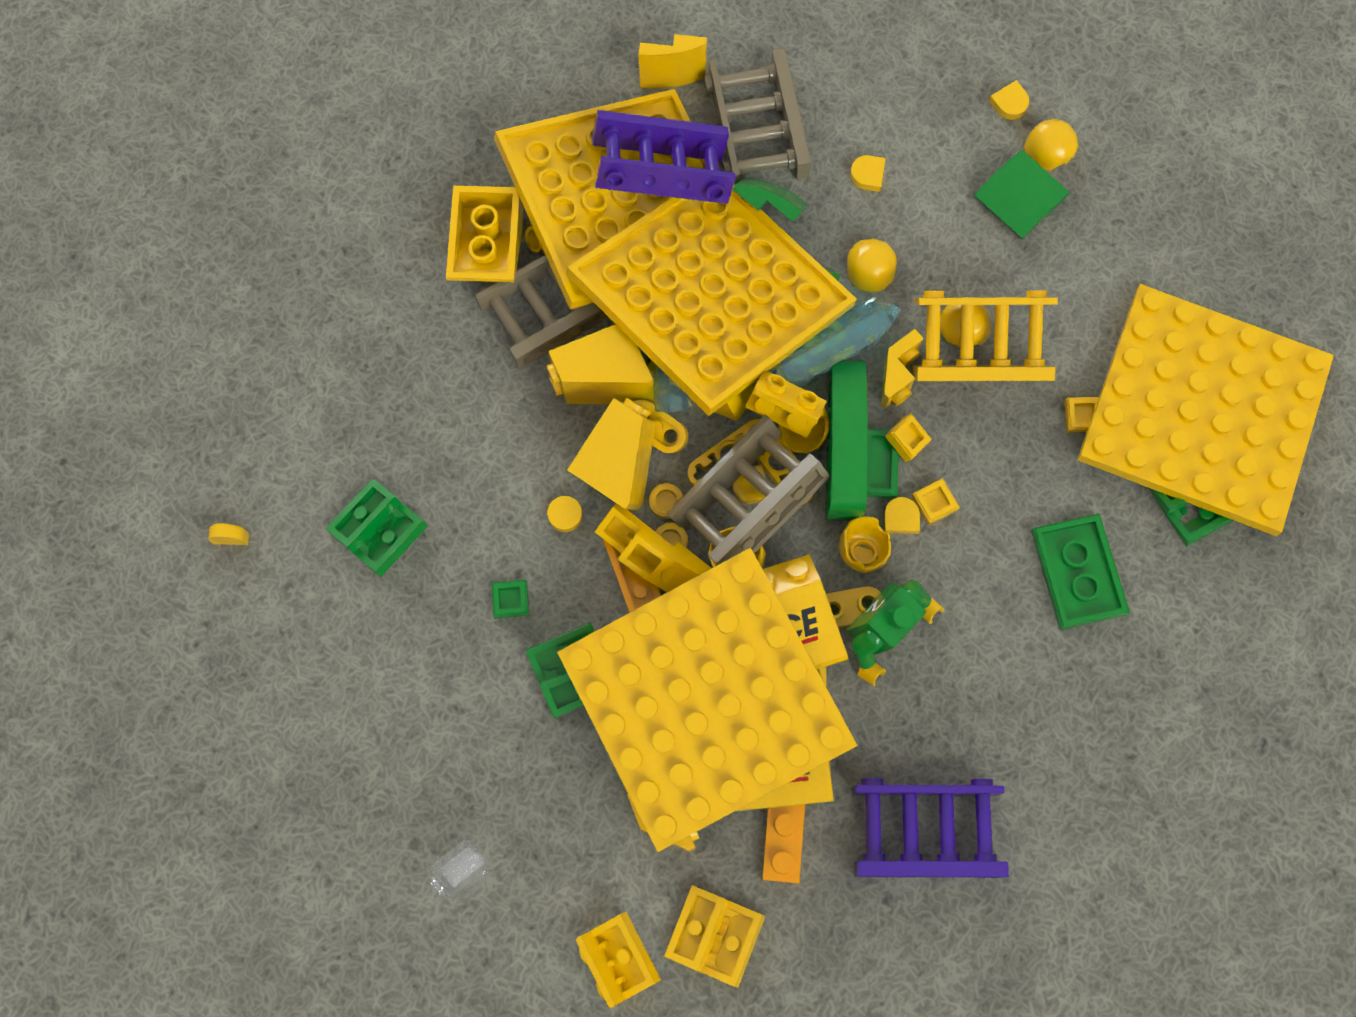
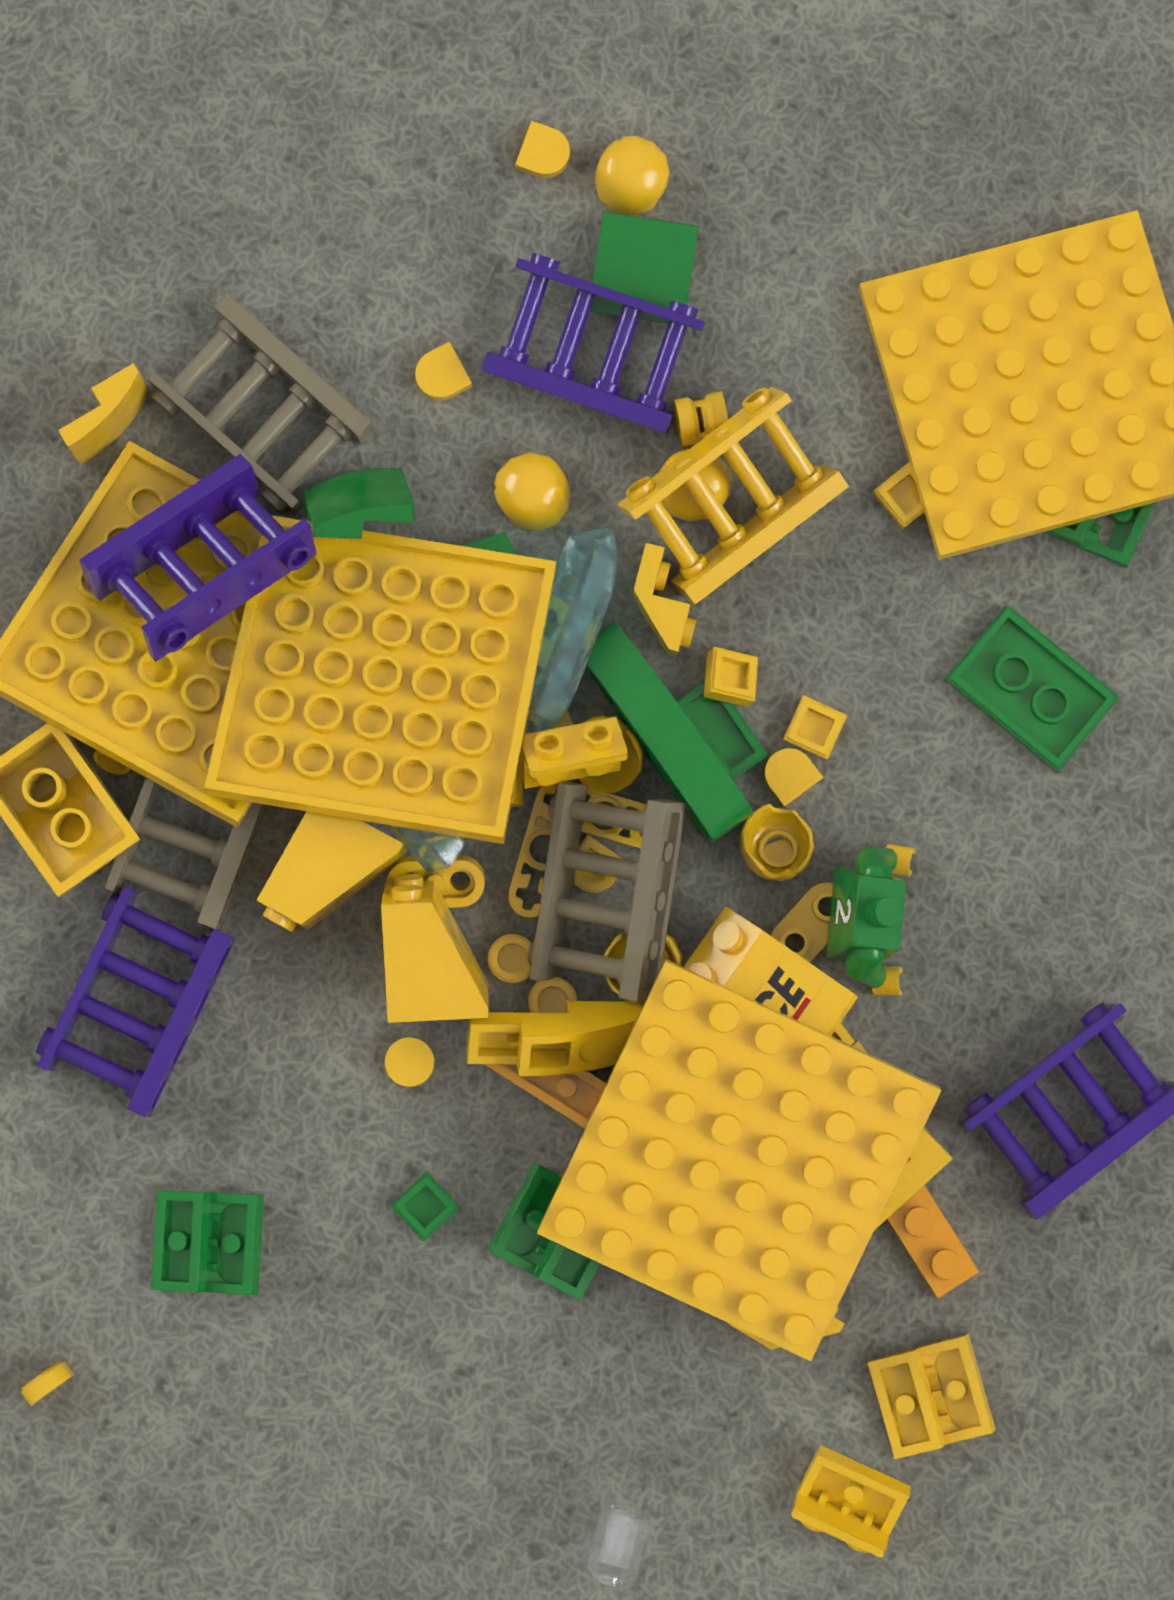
camera: 45 degrees left, 10 degrees up
(441, 402) = (164, 1041): none -> dark purple fence
(950, 239) = (558, 375): none -> dark purple fence
(1005, 287) = (712, 415): none -> yellow wheel

